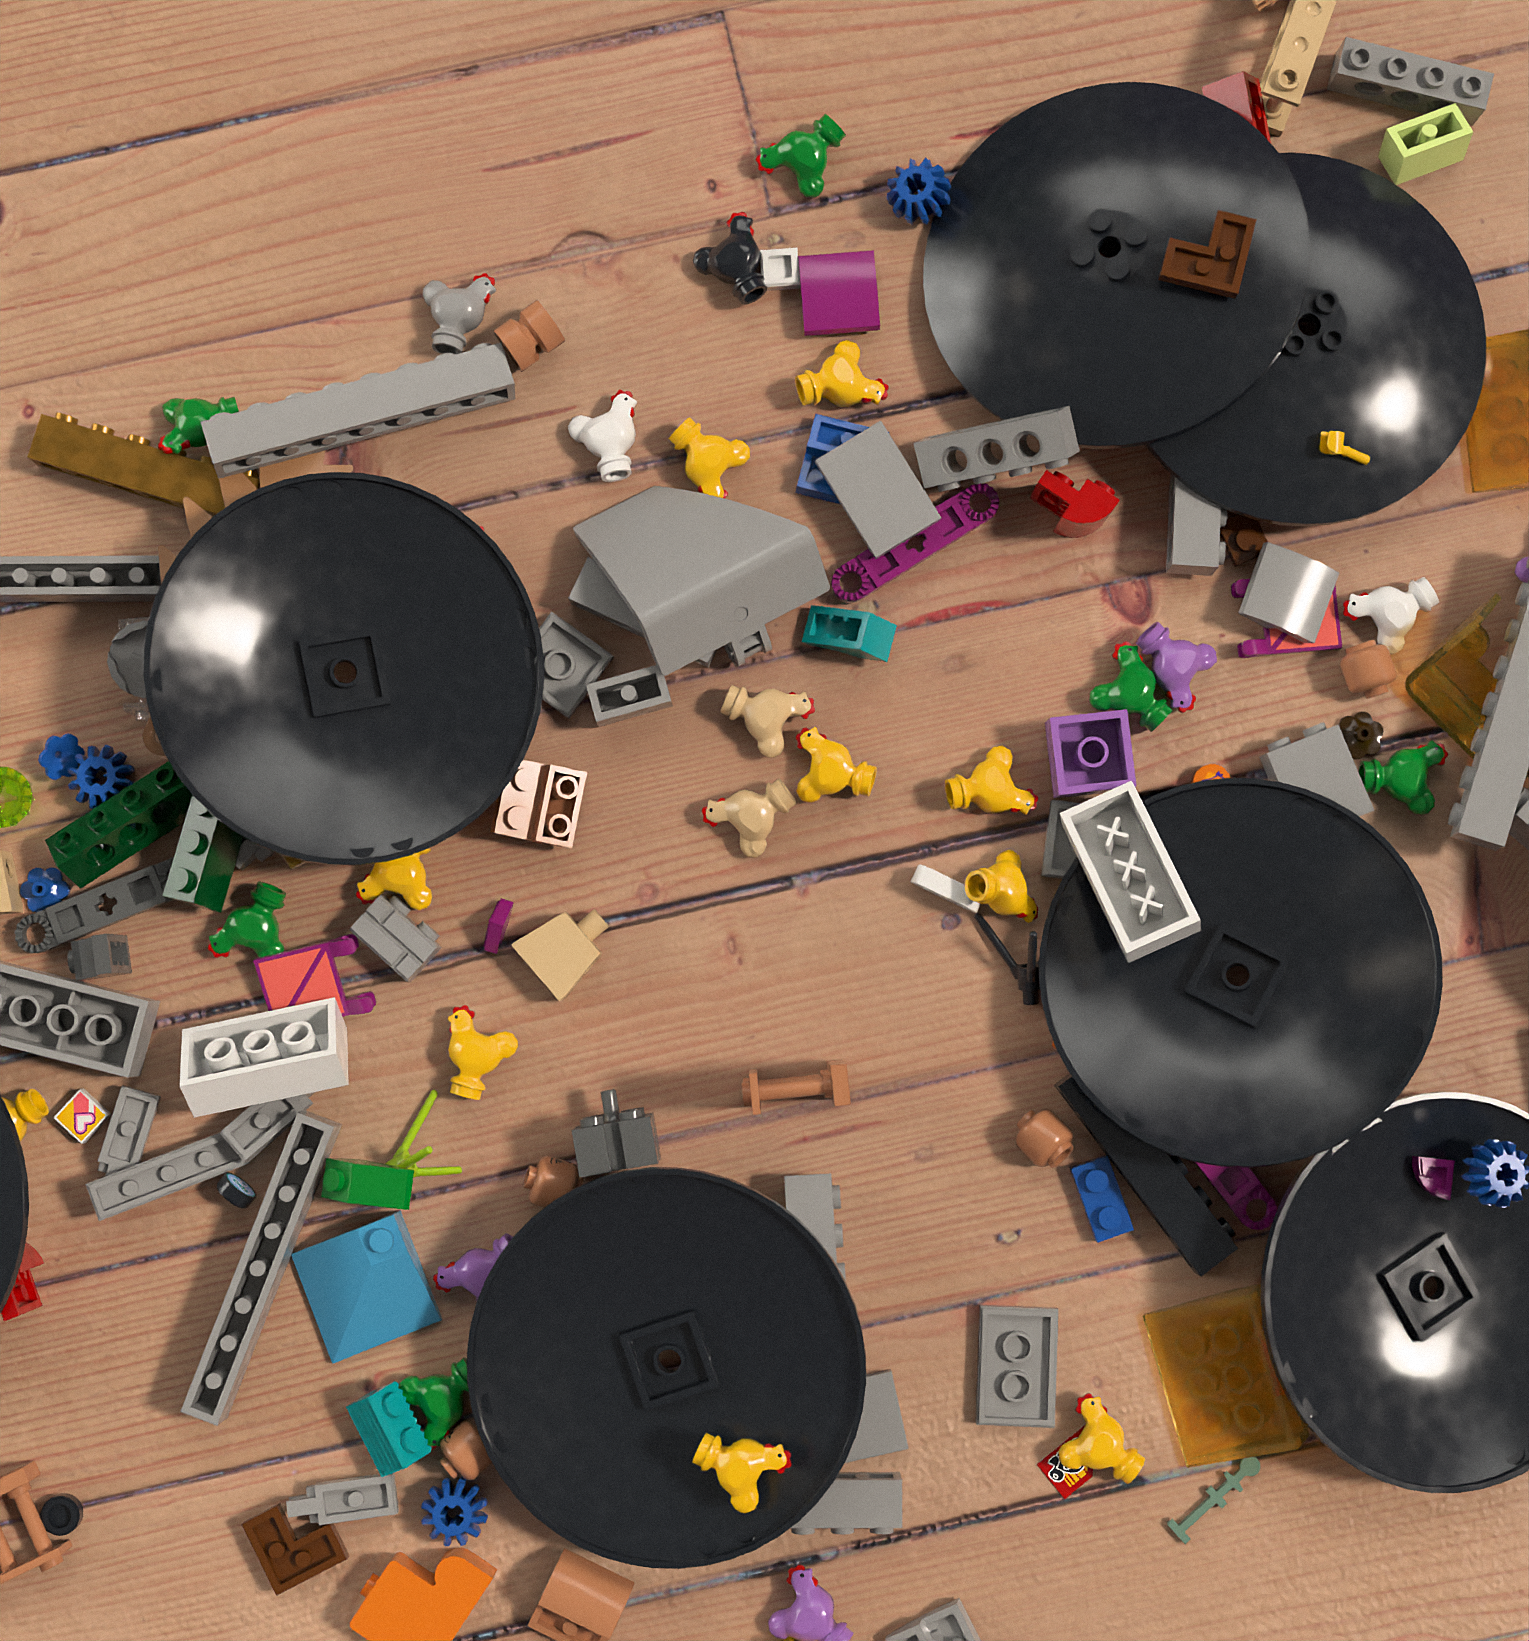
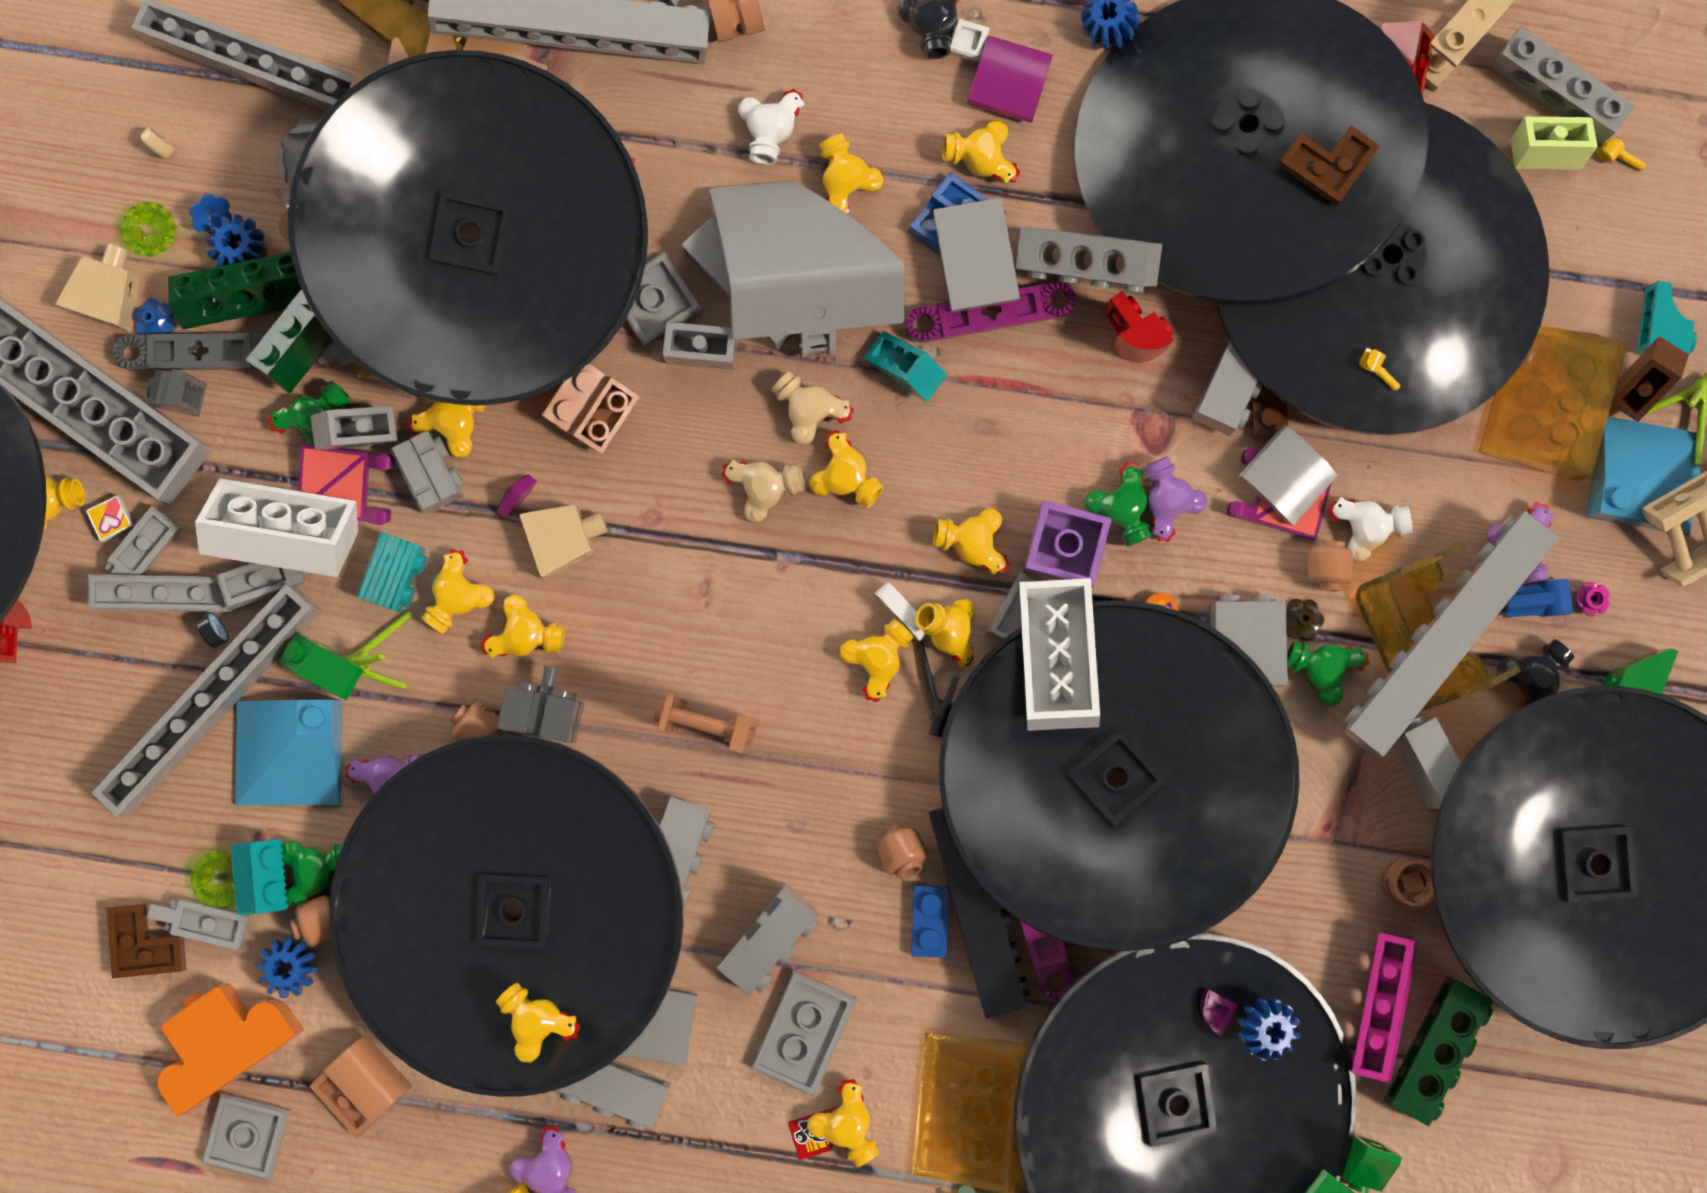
camera: 20 degrees right, 0 degrees up
(302, 922) = (353, 427): none -> light grey brick
(328, 1447) = (204, 872): none -> clear neon green gear
(401, 1057) = (392, 572): none -> teal brick
(562, 1065) = (523, 632): none -> yellow animal
(940, 946) = (878, 657): none -> yellow animal
(944, 1284) = (768, 940): none -> light grey wedge
(1489, 124) = (1615, 148): none -> yellow hand

